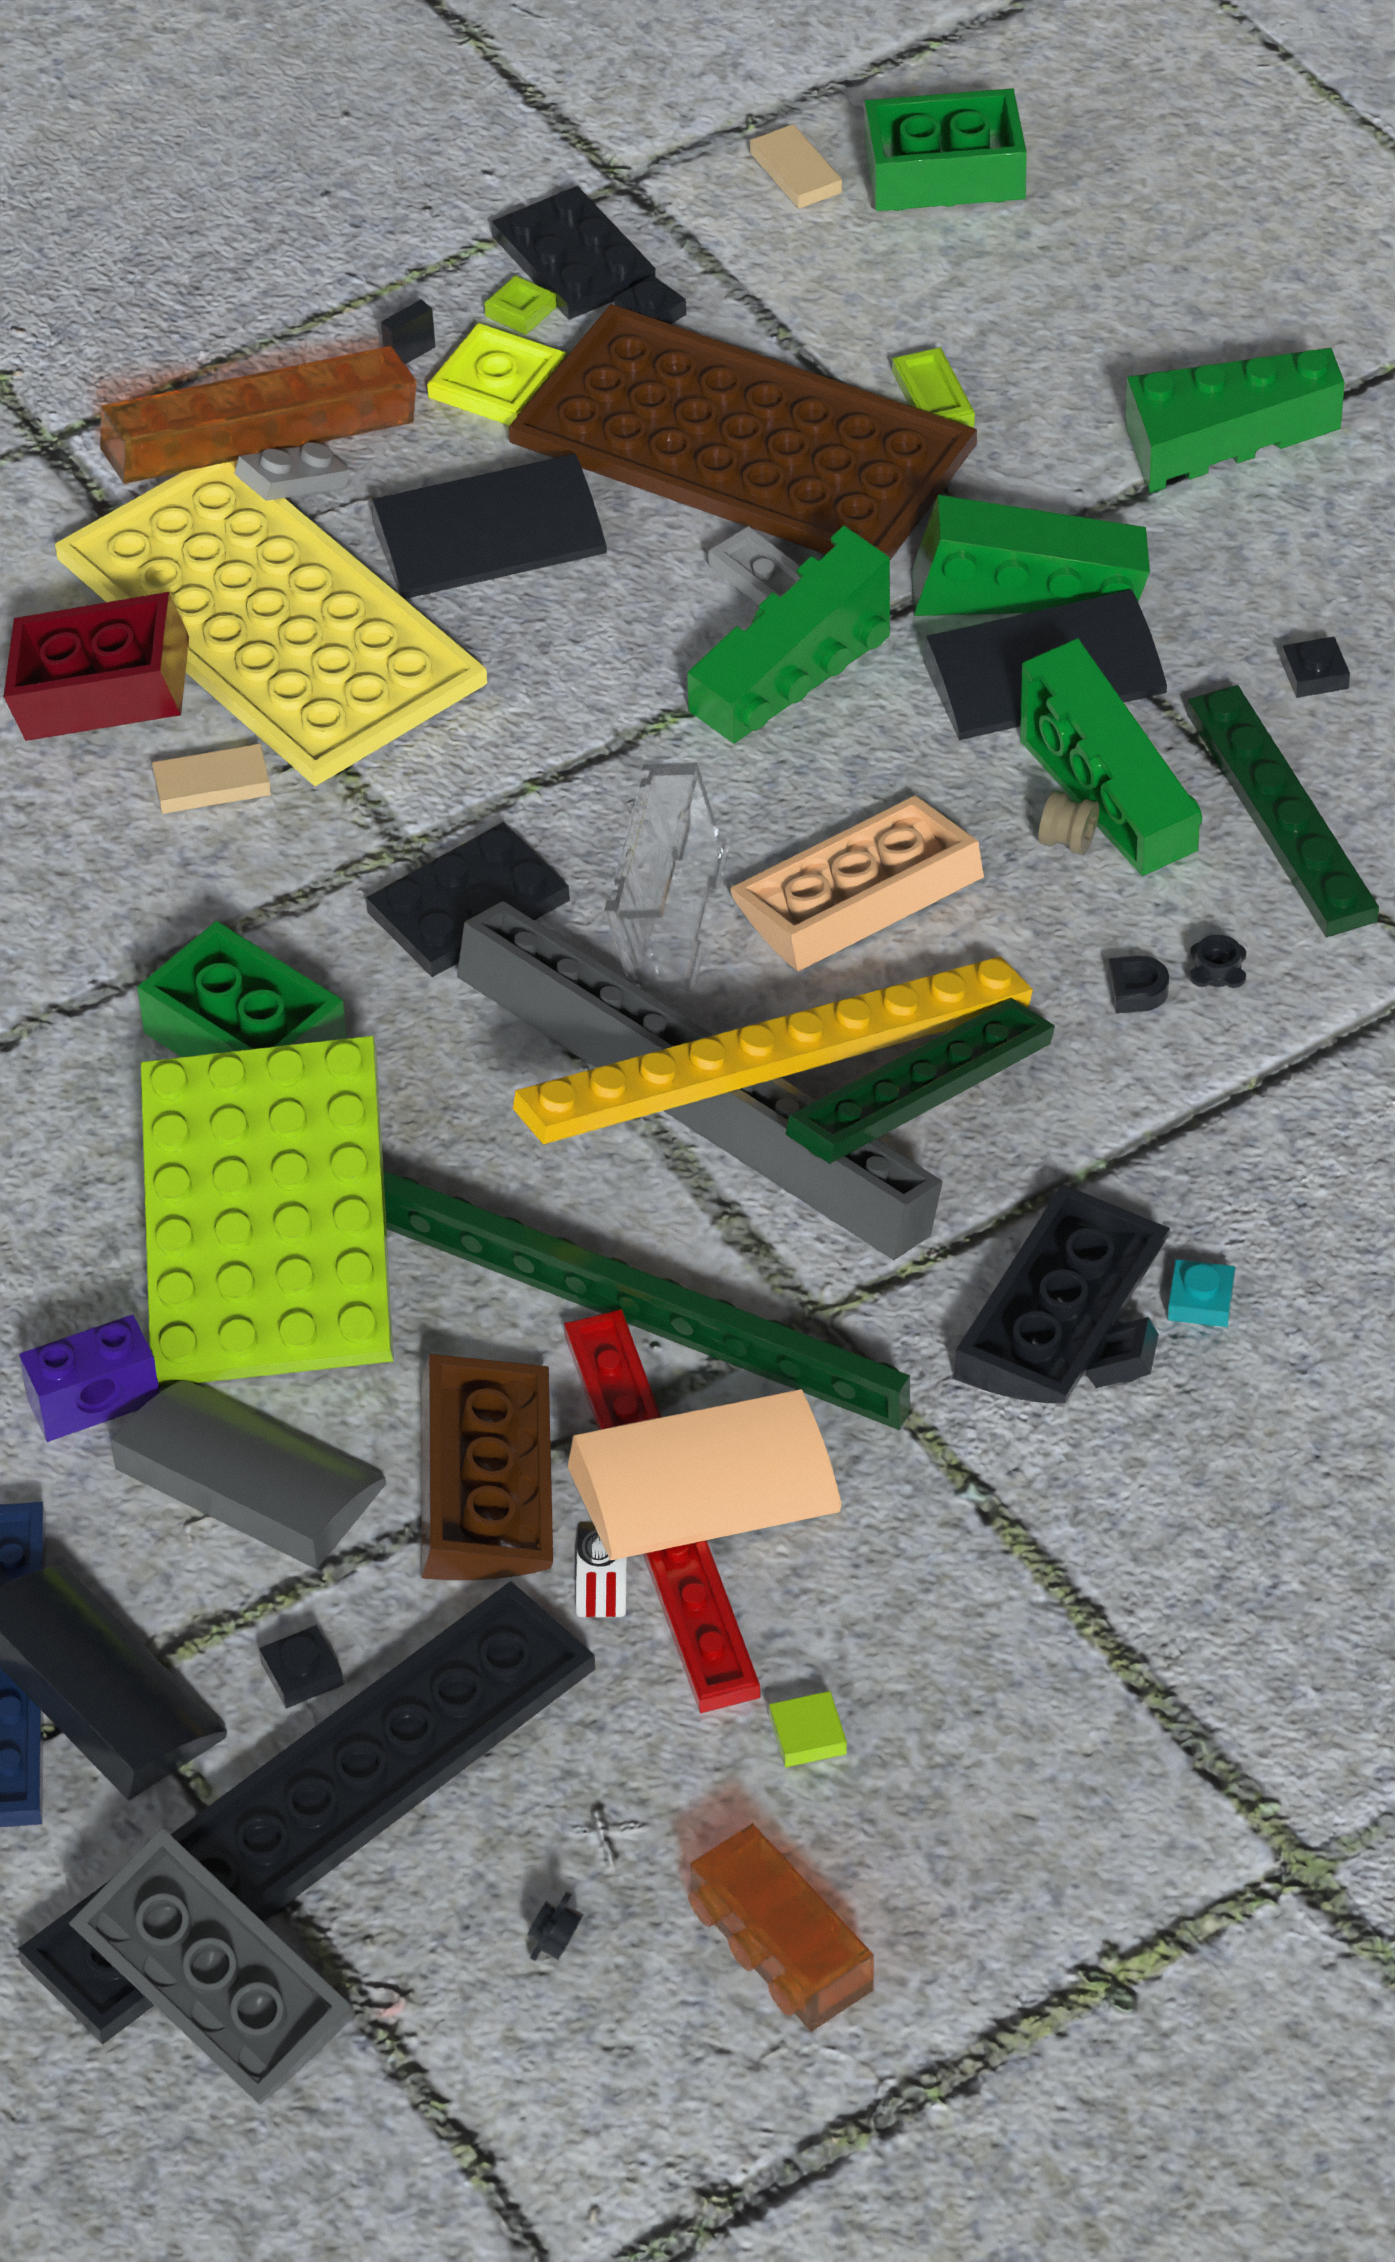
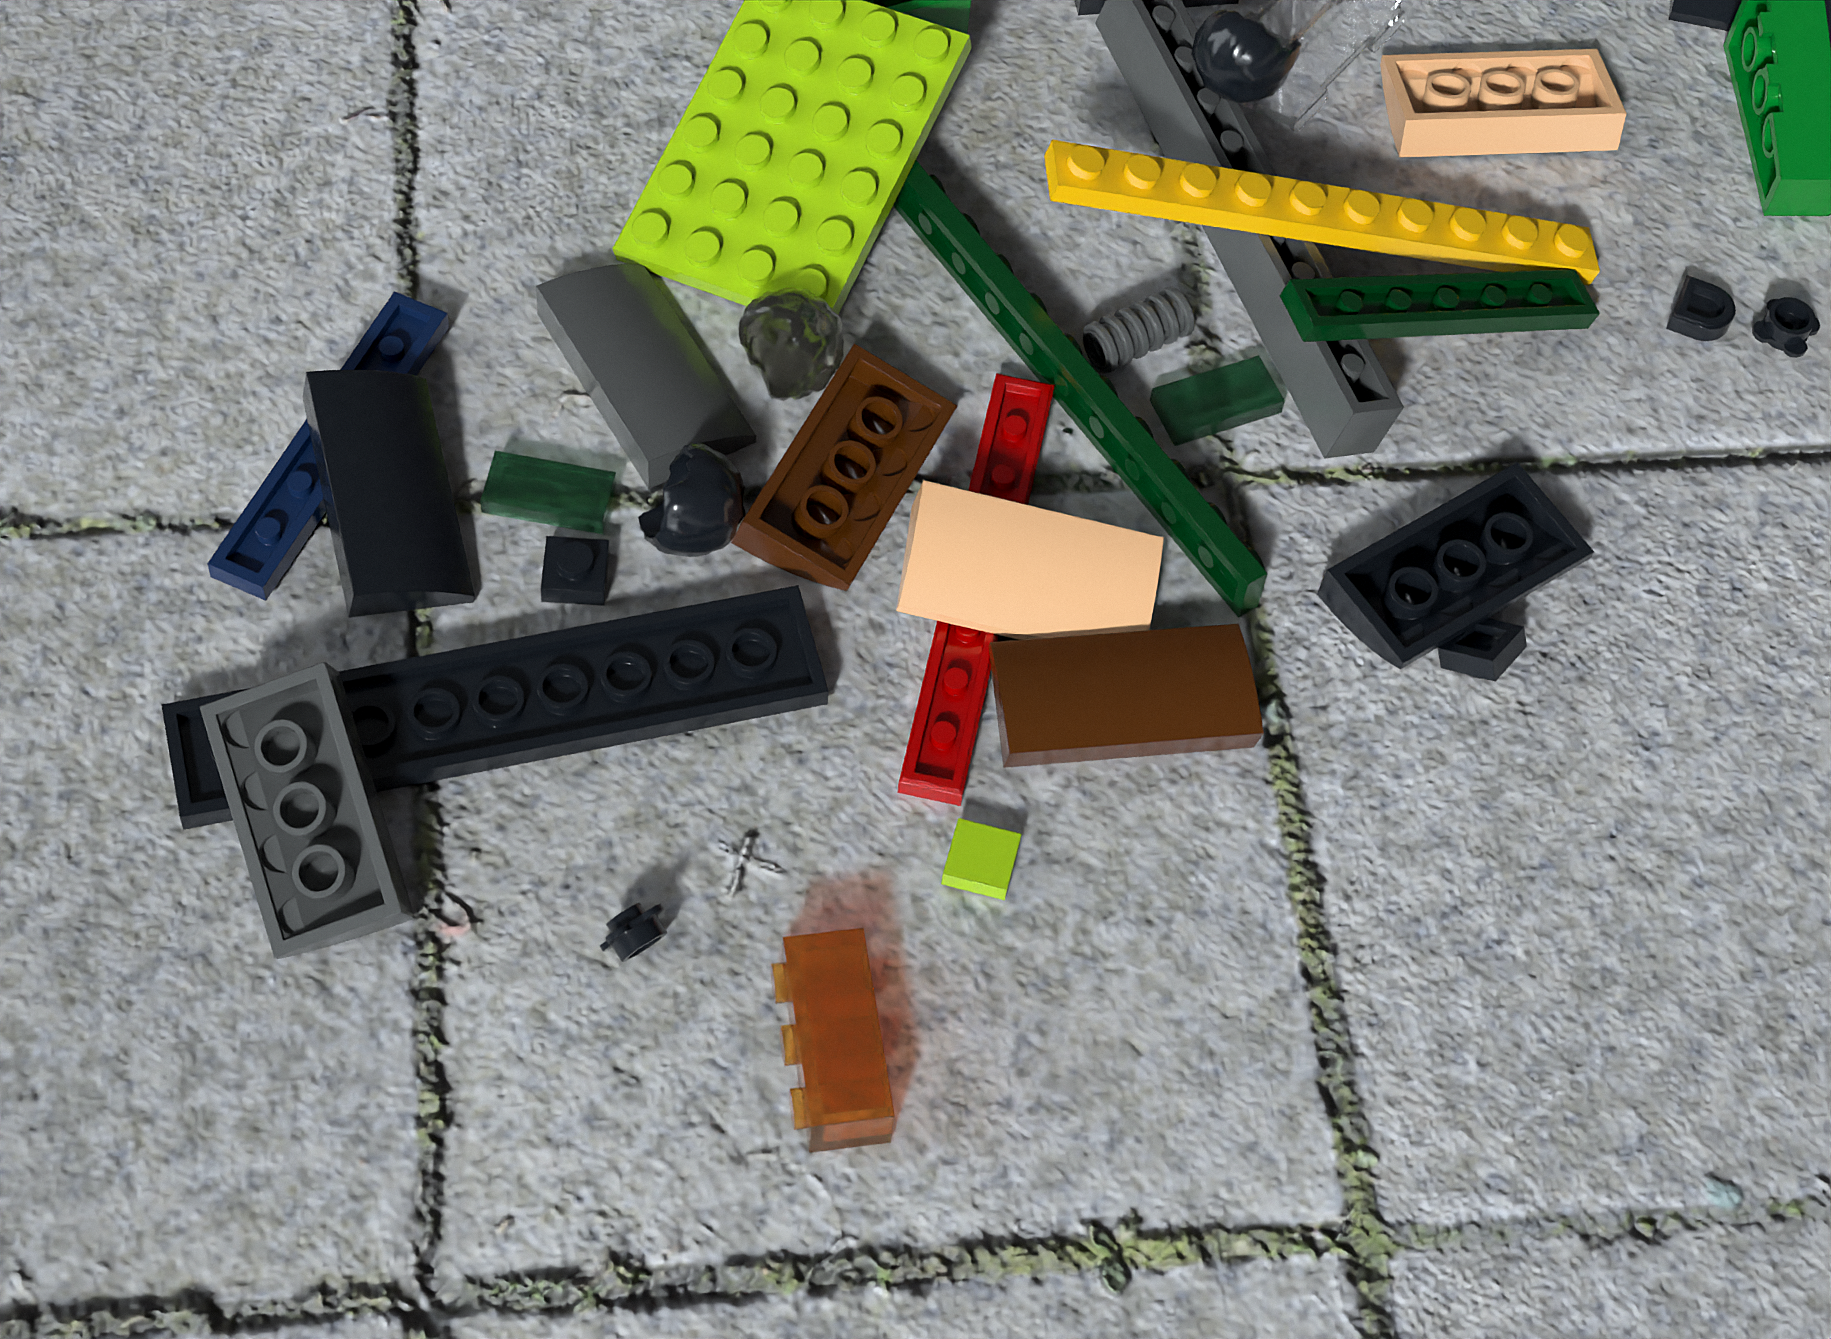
camera: 20 degrees right, 10 degrees up
(89, 1377) = (556, 222): dark purple brick -> none
(233, 1612) = (548, 492): none -> clear green tile
(373, 1379) = (792, 341): none -> clear smoke hair
(378, 1555) = (698, 504): none -> black hair
(598, 1580) = (881, 627): sticker -> none
(626, 944) = (1241, 57): none -> black hair
(666, 1225) = (1138, 329): none -> dark grey piece
(769, 1256) = (1216, 400): none -> clear green tile
(846, 1537) = (1124, 695): none -> reddish brown slope
(1068, 822) = (1721, 135): dark tan wheel -> none
(1201, 1293) = (1592, 626): teal plate -> none

